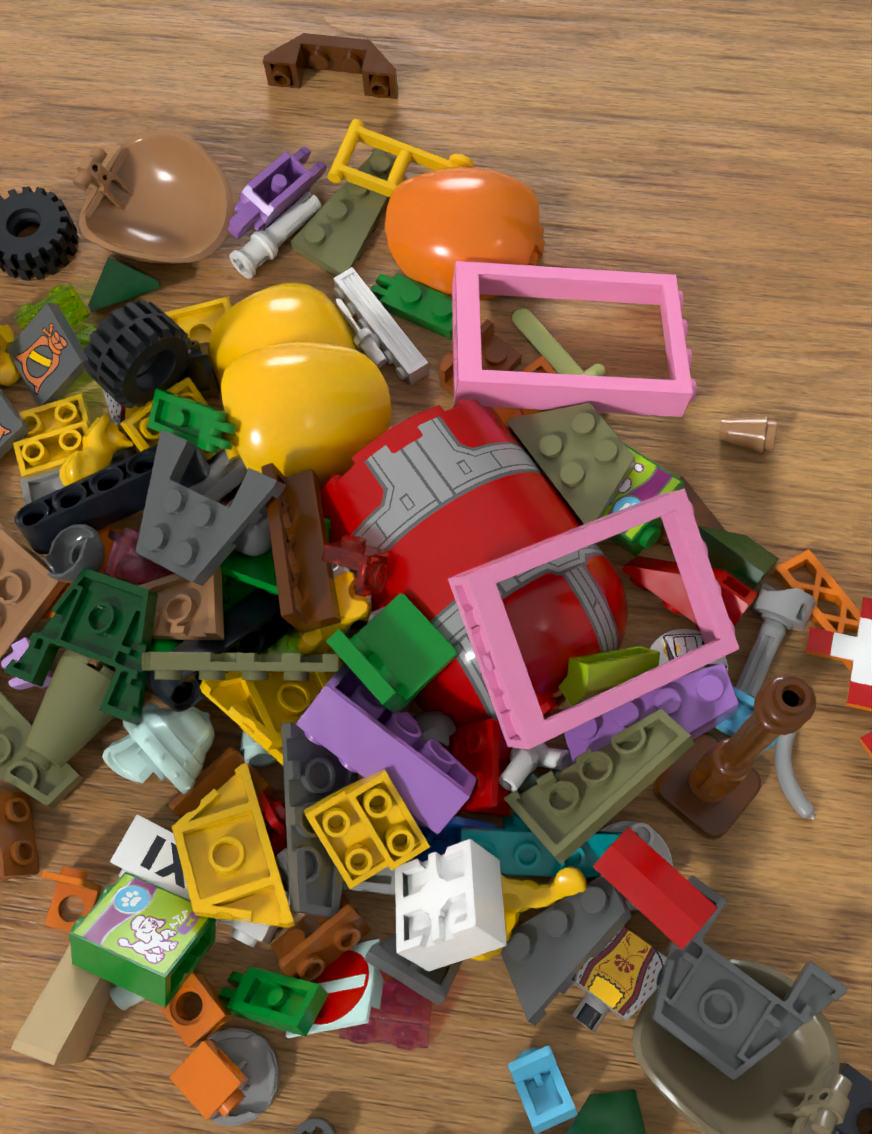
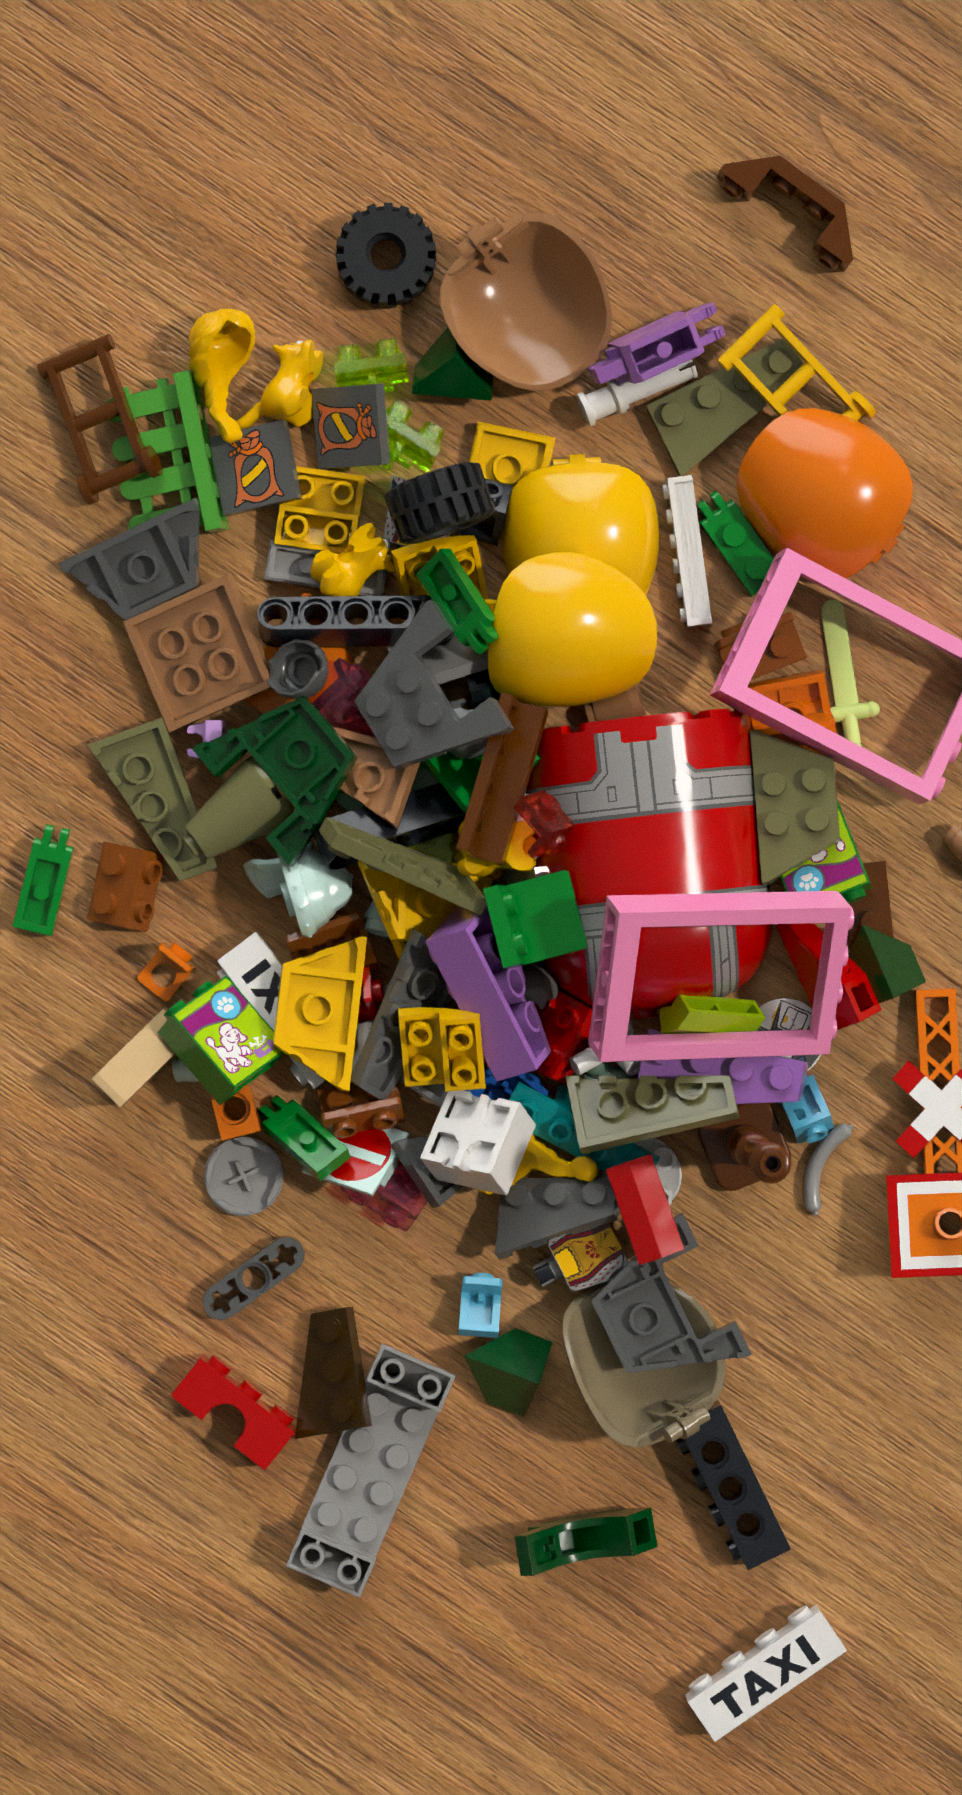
camera: 20 degrees right, 20 degrees up
(210, 1080) = (228, 1173): orange brick -> none
(363, 339) = (664, 564): white piece -> none
(779, 614) = (889, 1035): light grey piece -> none

